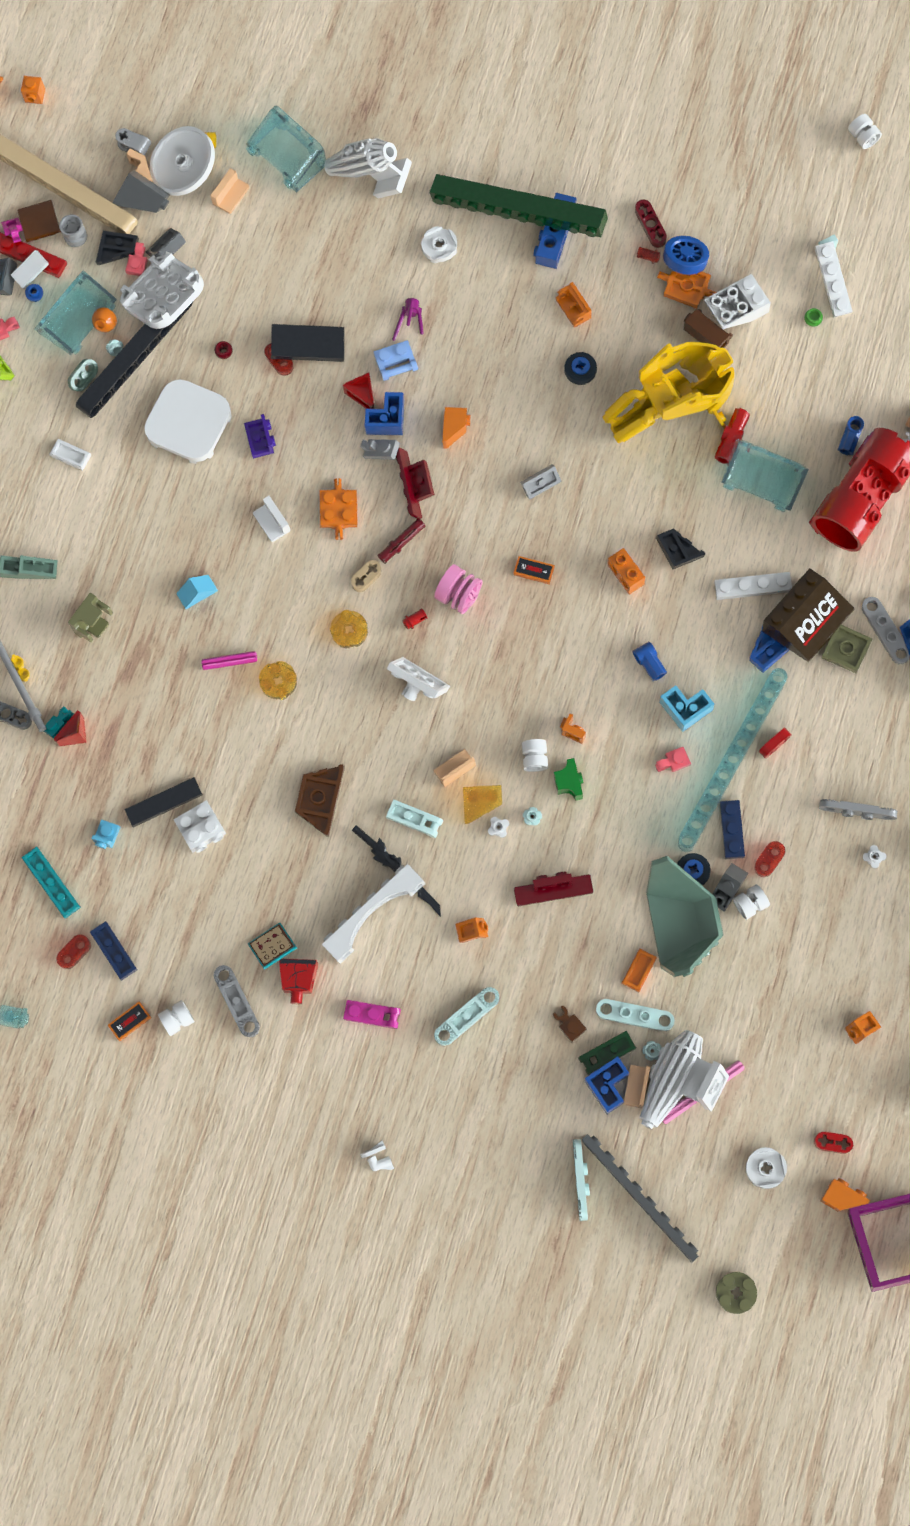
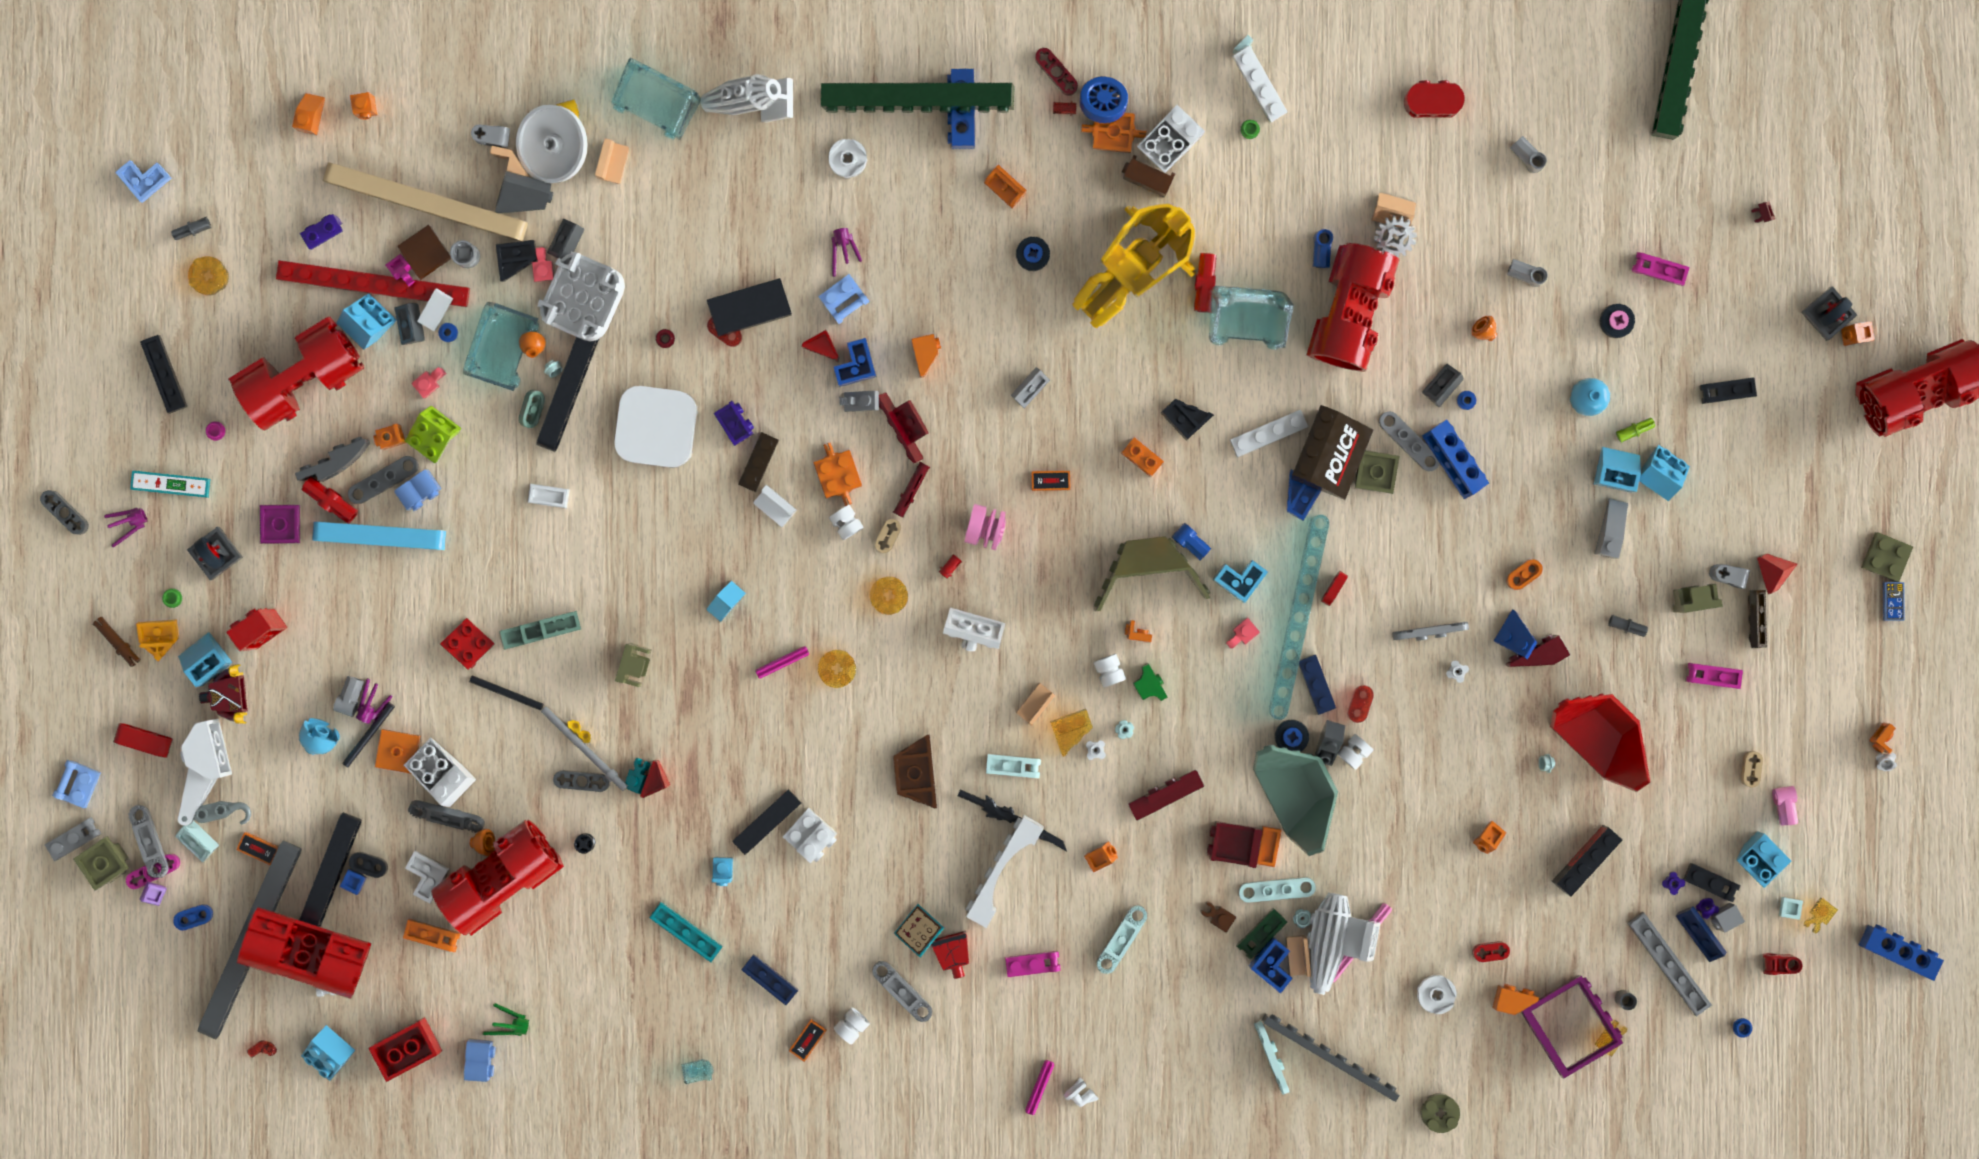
camera: 20 degrees left, 15 degrees up
(71, 950) = (732, 991): clear red plate -> none
(270, 478) = (758, 462): none -> dark brown plate
(331, 551) = (846, 522): none -> white wheel
(339, 1138) = (1039, 1087): none -> dark pink axle
(605, 655) = (1146, 558): none -> olive piece
(605, 957) = (1234, 844): none -> dark red panel

